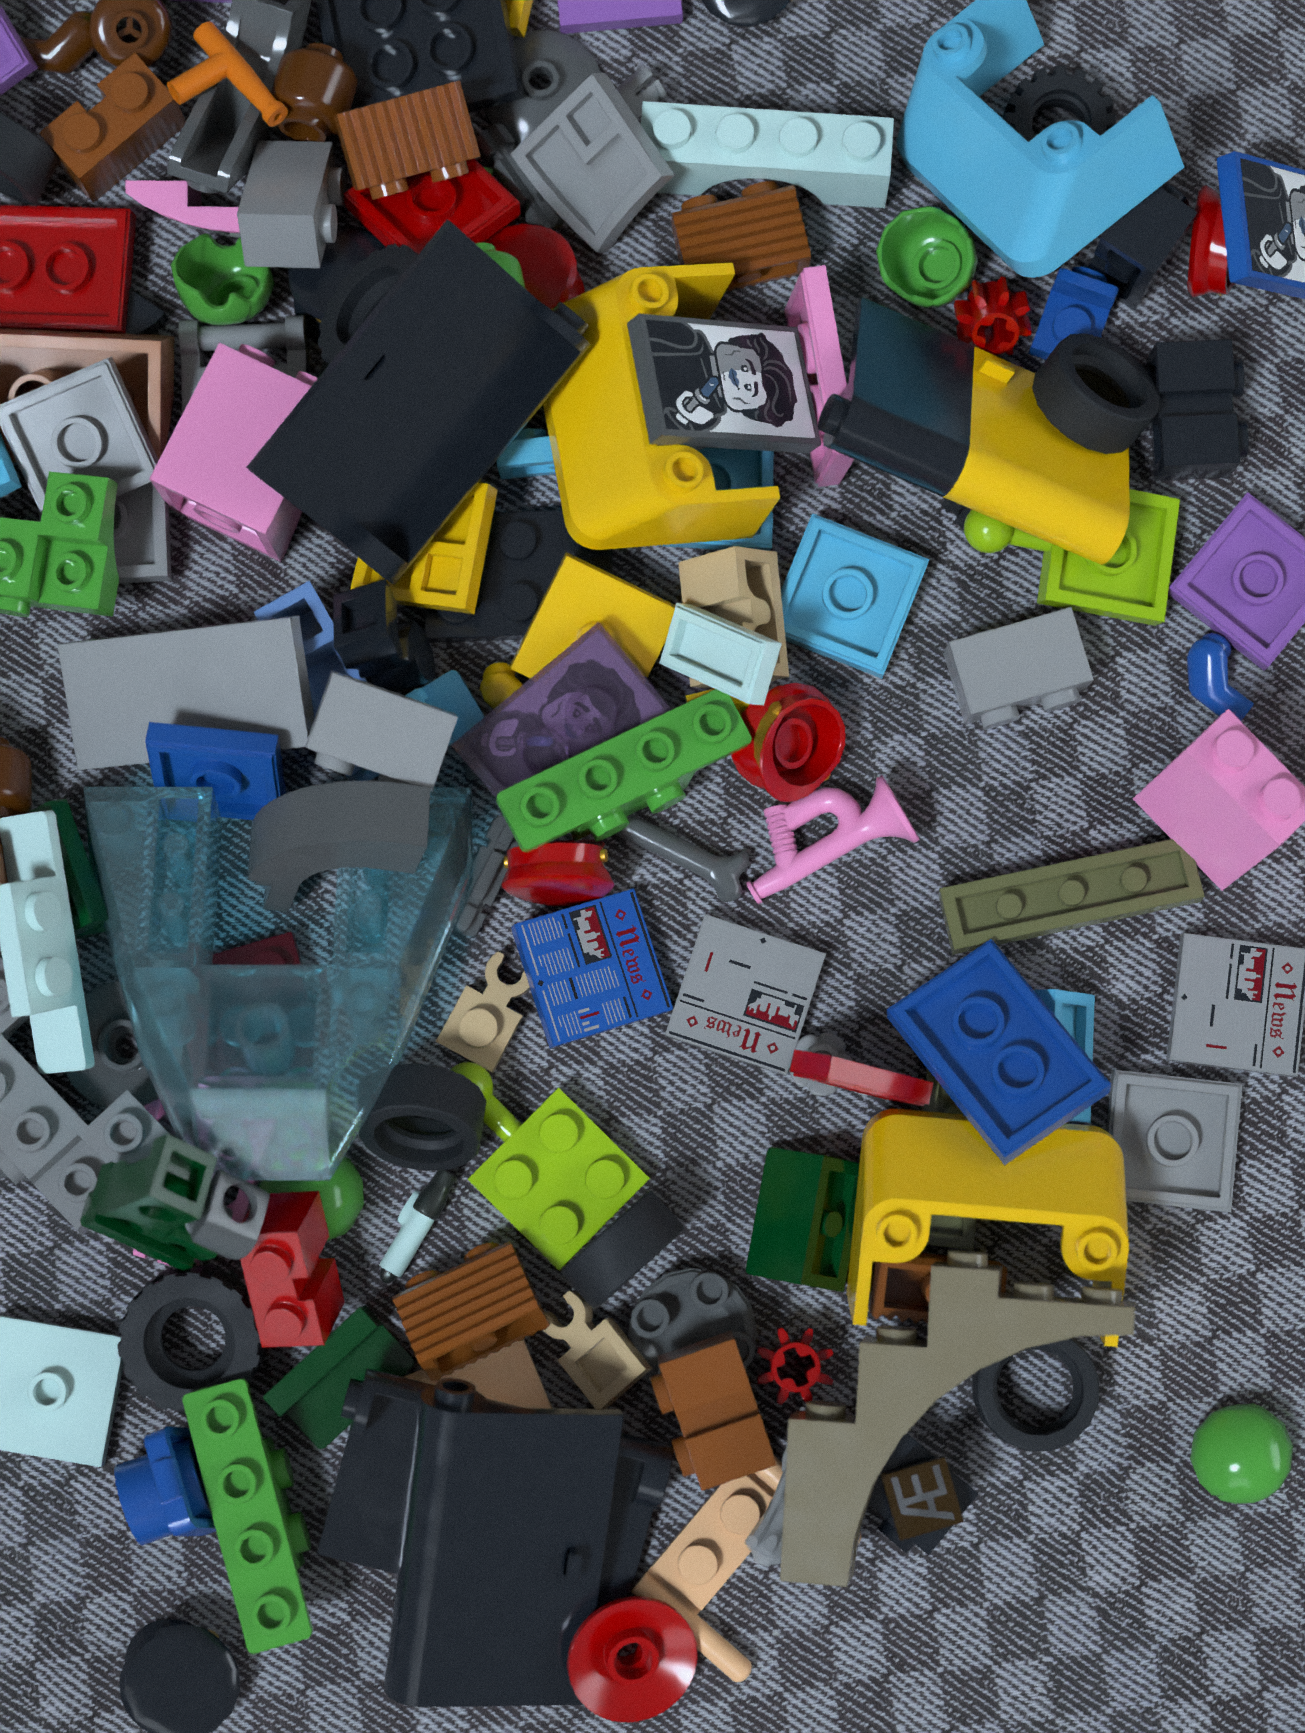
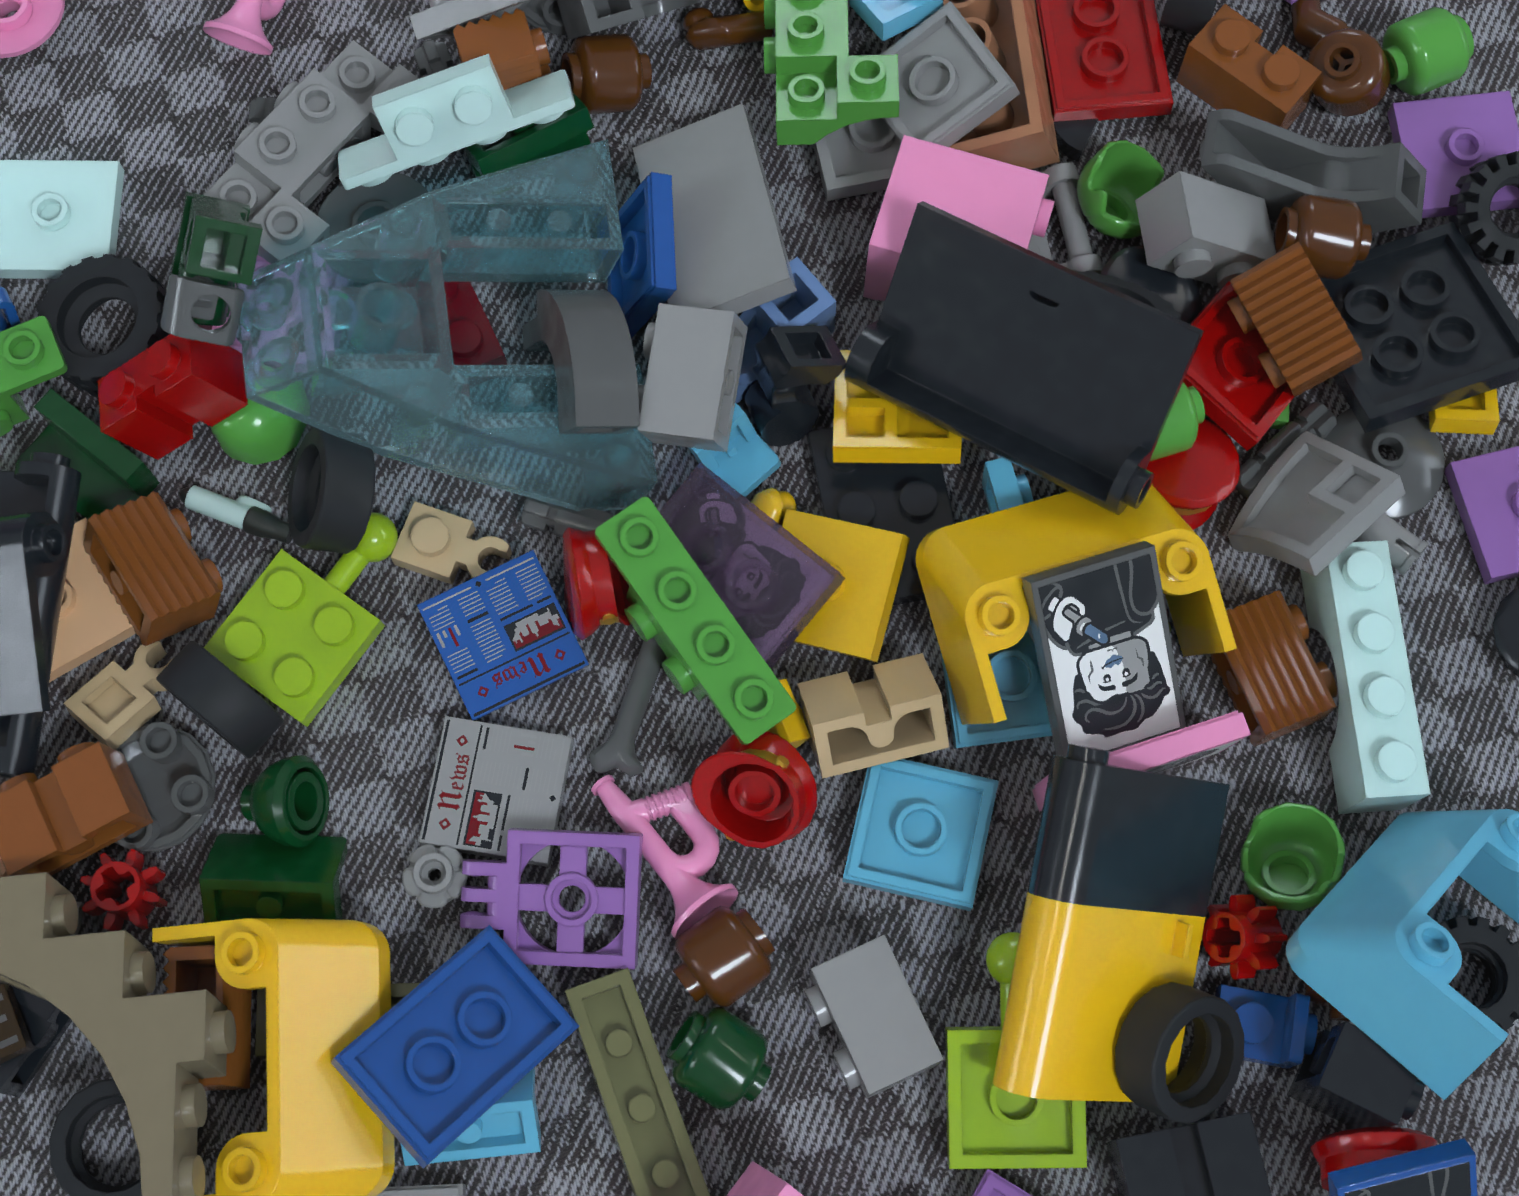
camera: 80 degrees right, 10 degrees down
(183, 205) = (1186, 135): bright pink slope -> none
(225, 63) = (1328, 146): orange piece -> none
(720, 653) = (827, 697): light aqua tile -> none
(729, 1198) = (288, 801): none -> dark green brick
(854, 994) = (508, 896): none -> medium lavender piece
(861, 1078) = (415, 909): red tile -> none
(943, 797) = (723, 956): none -> reddish brown head
(1035, 815) = (719, 1058): none -> dark green head

